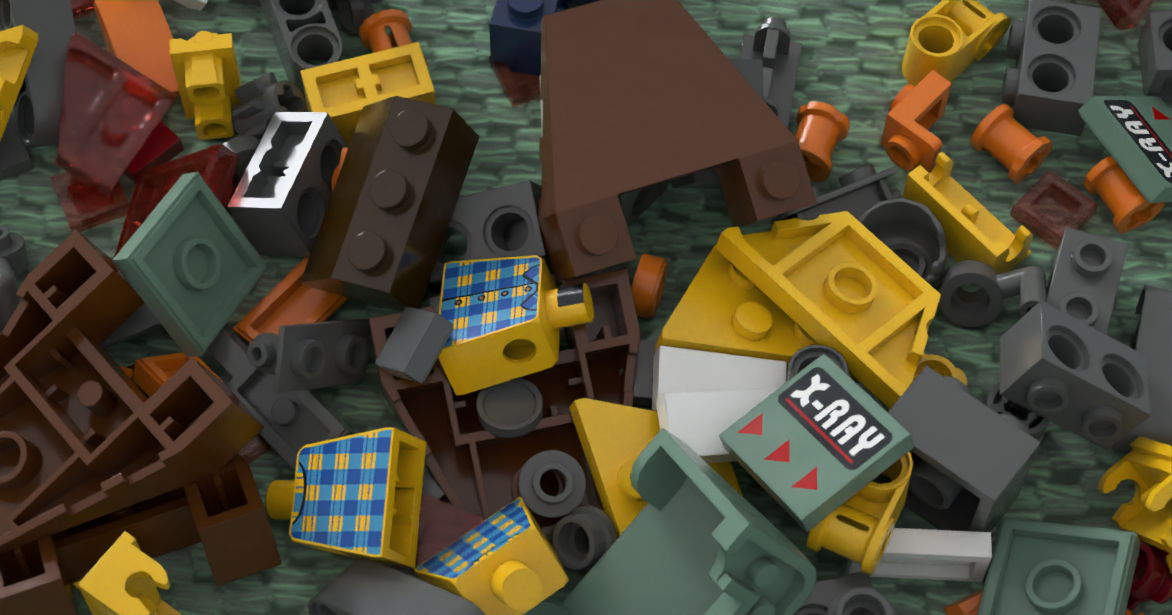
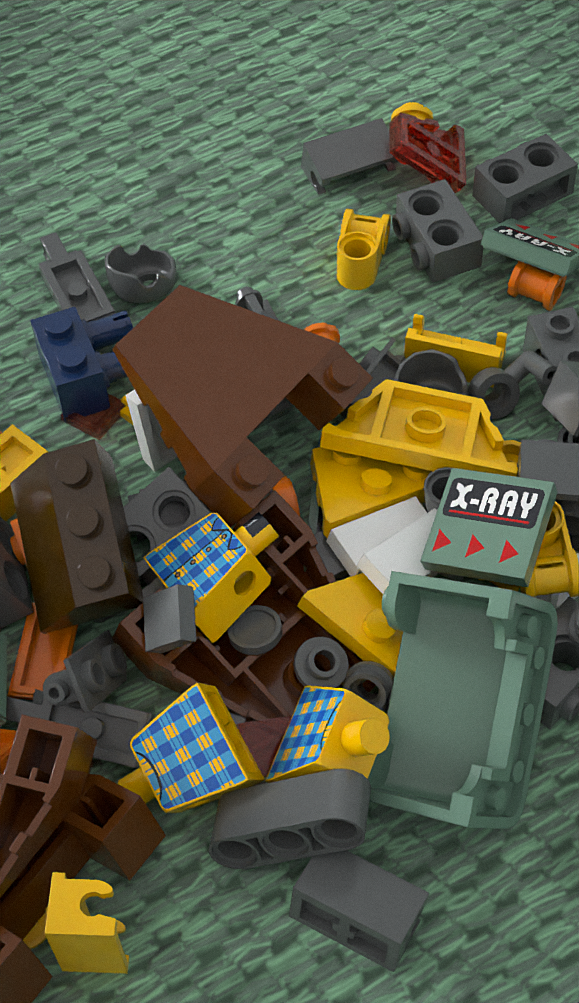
camera: 30 degrees left, 5 degrees down
(910, 118) = (381, 319): orange bracket -> none
(1010, 143) = (446, 290): orange bush -> none
(1052, 207) = (500, 315): clear red tile -> none

